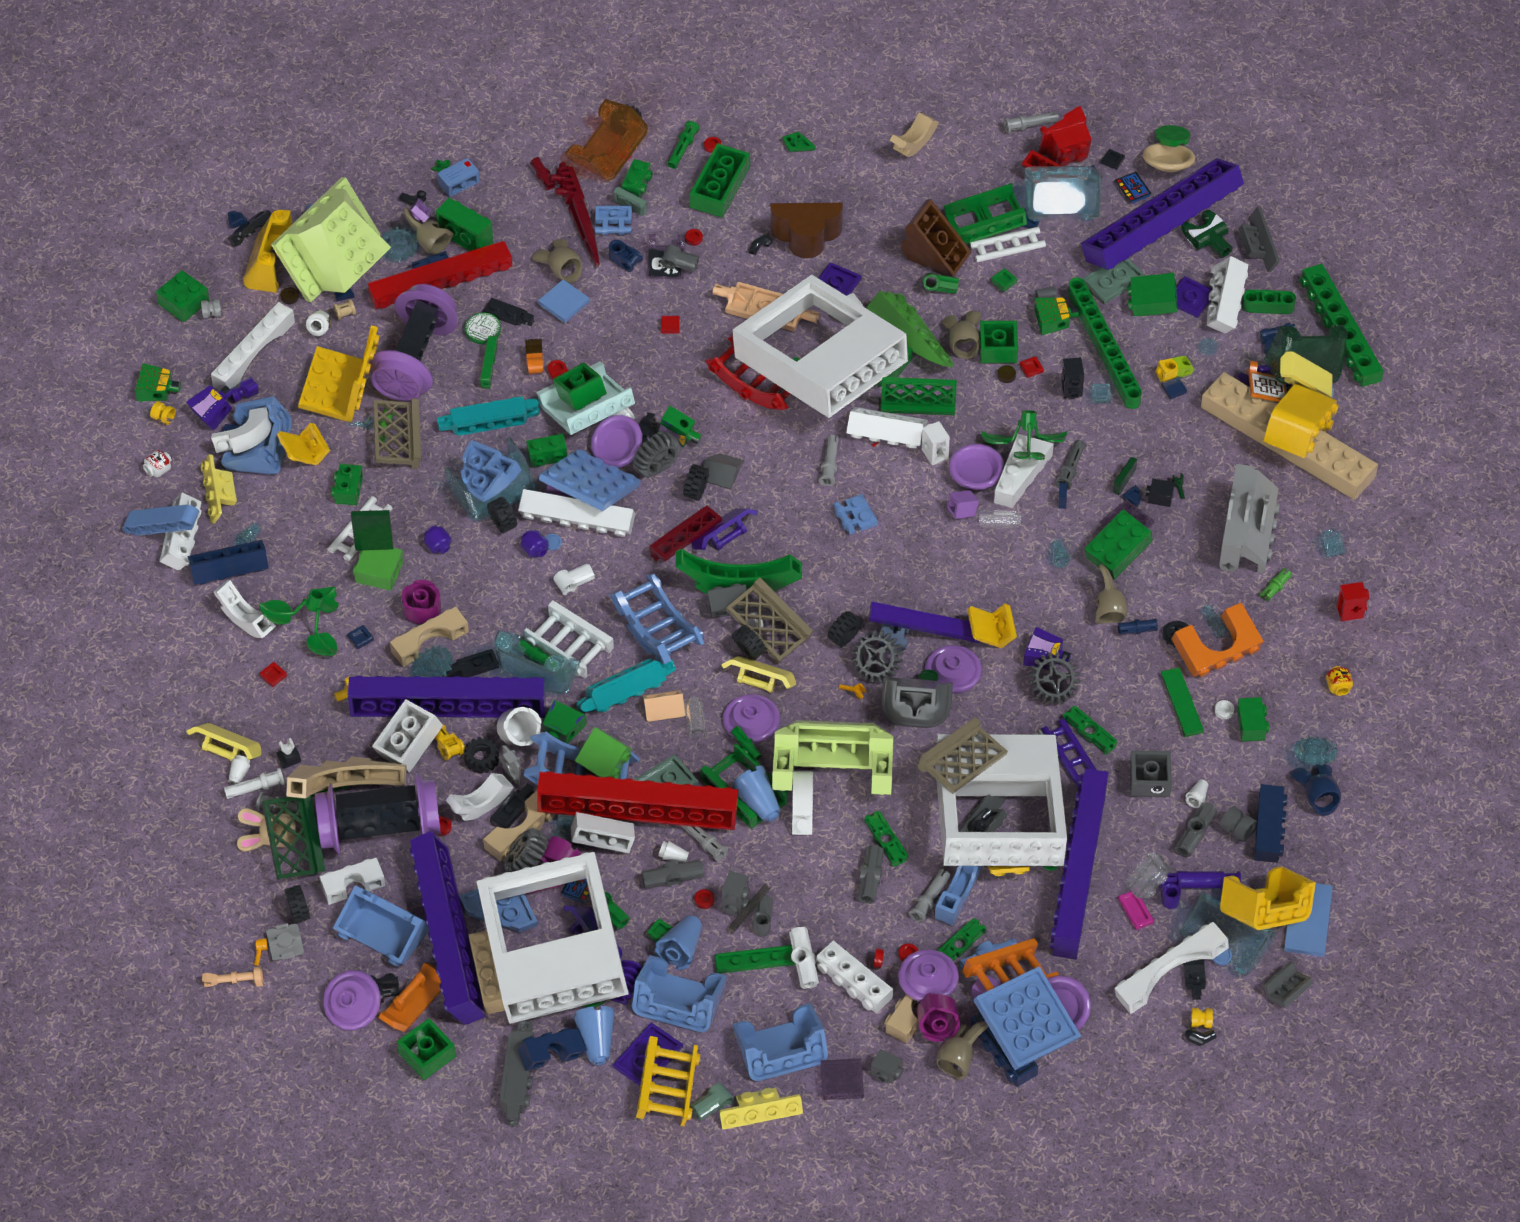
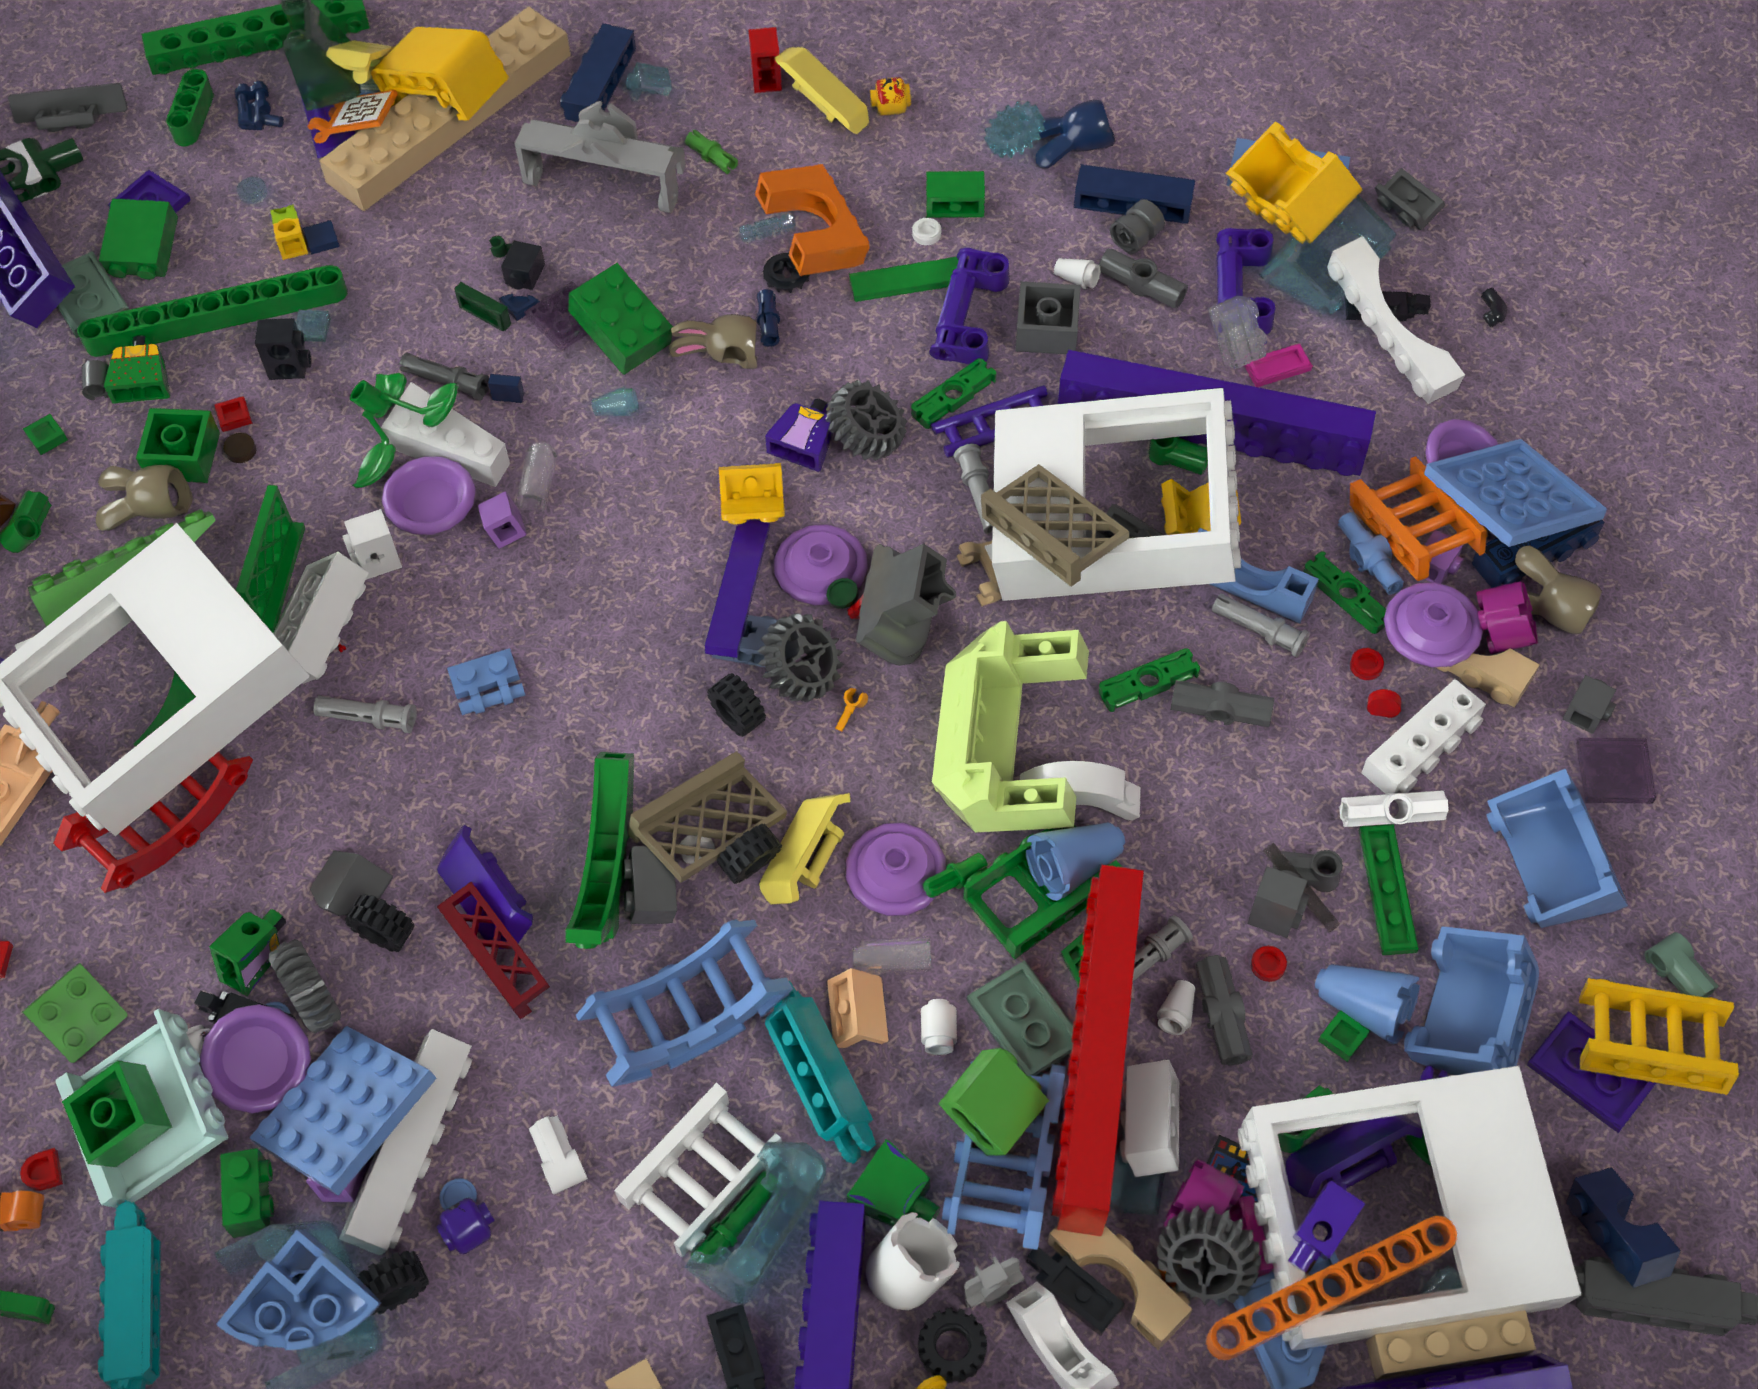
camera: 85 degrees left, 5 degrees up
(500, 893) = (1345, 1274): none -> orange beam
(530, 878) = (1333, 1210): none -> dark purple torso
(596, 1032) = (1577, 1148): medium blue cone -> none
(640, 364) = (75, 1013): none -> bright green bracket
(654, 740) = (938, 1027): none -> white brick
(760, 1107) = (1676, 897): light yellow bracket -> none
(1184, 730) = (950, 330): none -> dark purple piece
(1201, 1018) = (1467, 300): yellow wheel -> none
(1226, 294) = (162, 147): white wedge -> none
(1326, 634) = (824, 89): none -> light yellow piece
(1332, 514) = (599, 70): none -> dark blue brick

